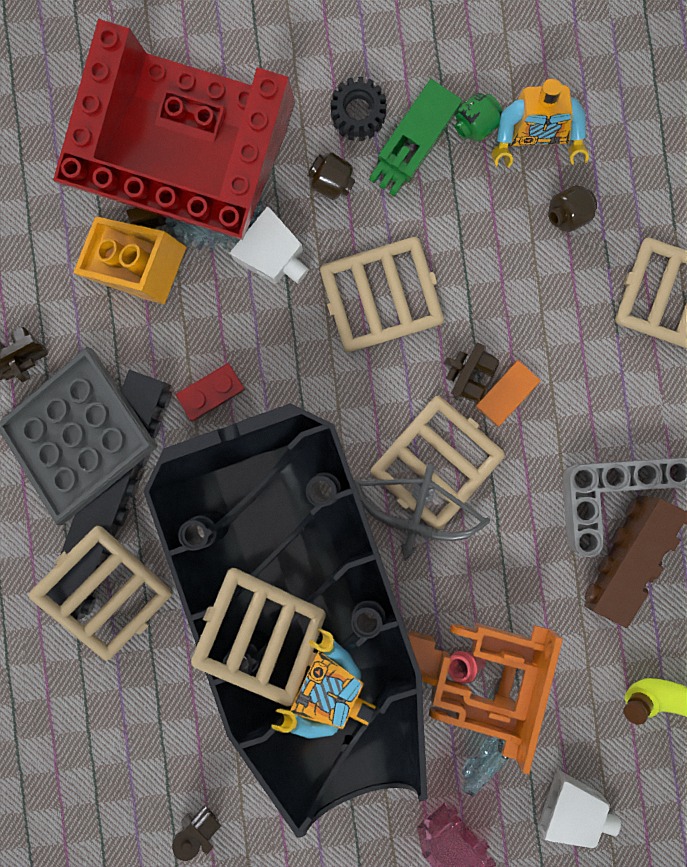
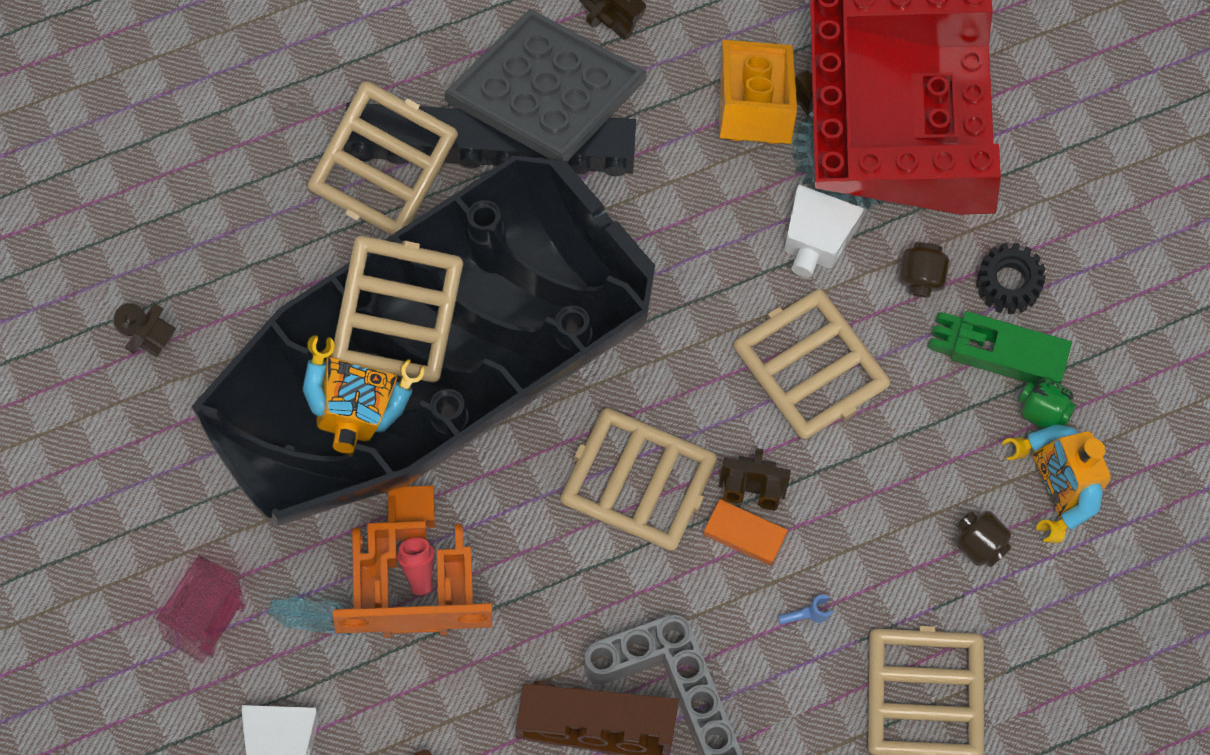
camera: 65 degrees right, 20 degrees down
(210, 392) = (639, 215): red plate -> none
(423, 495) = (597, 466): dark grey piece -> none
(586, 365) = (808, 612): none -> medium blue hand

